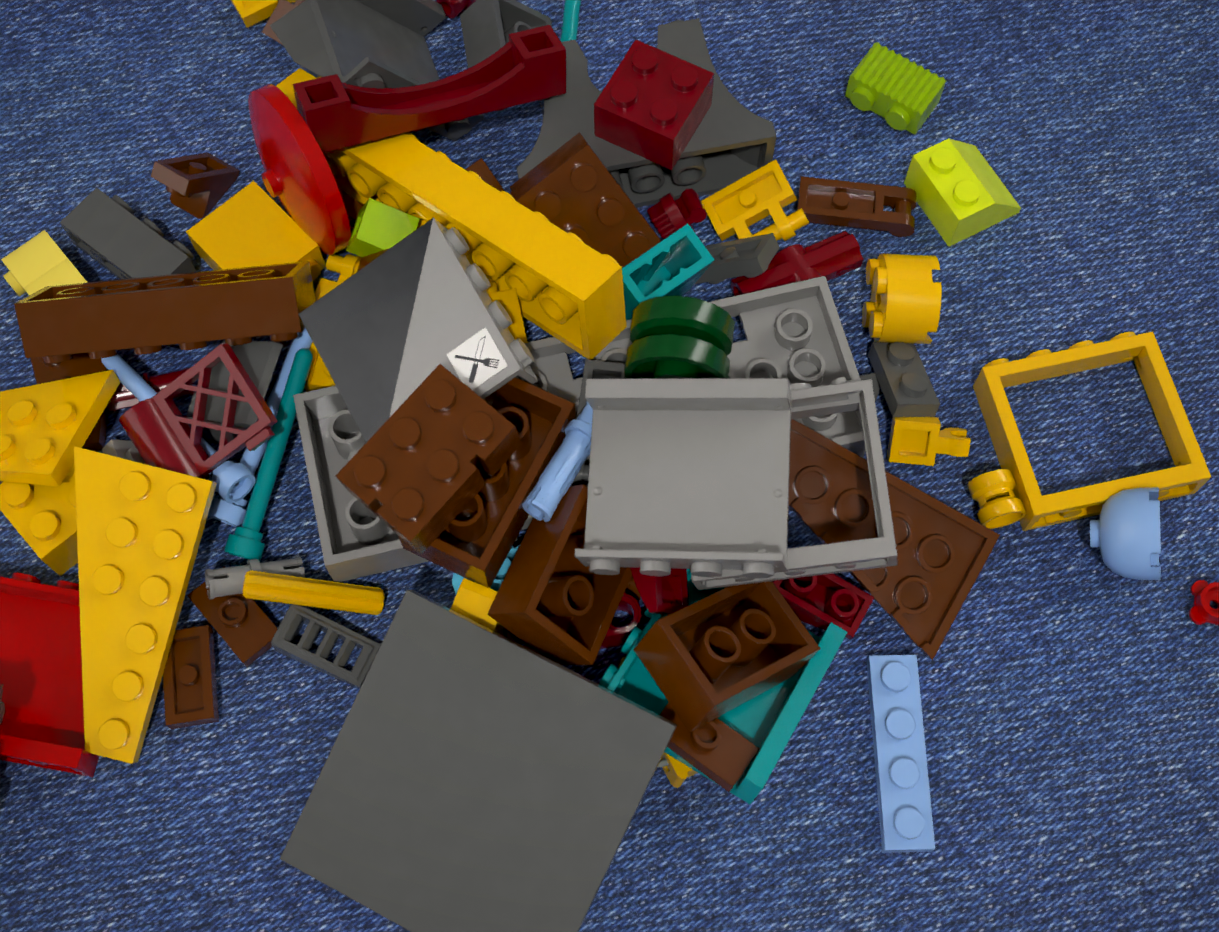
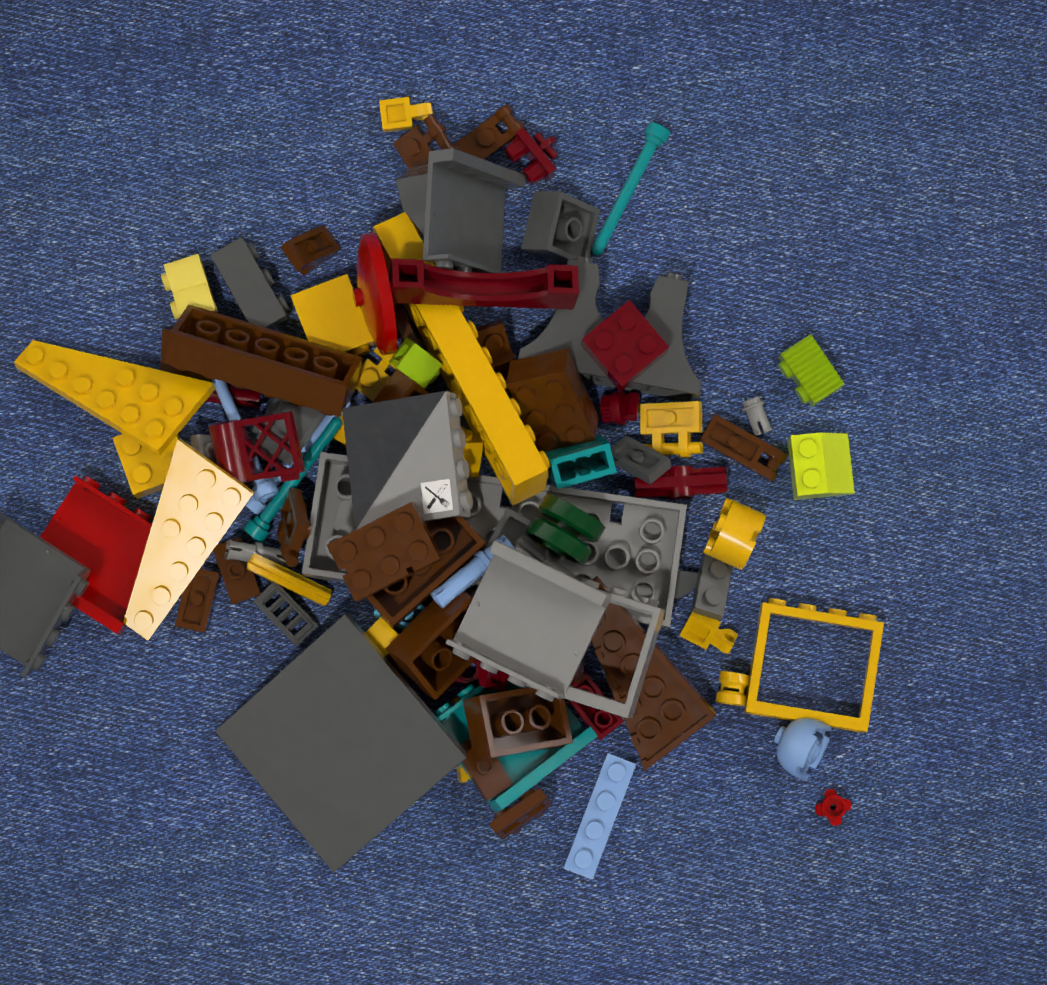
camera: 15 degrees right, 15 degrees up
(292, 508) = (293, 526): none -> reddish brown plate
(799, 771) = (512, 819): none -> reddish brown plate
(853, 162) = (756, 413): none -> light grey pin

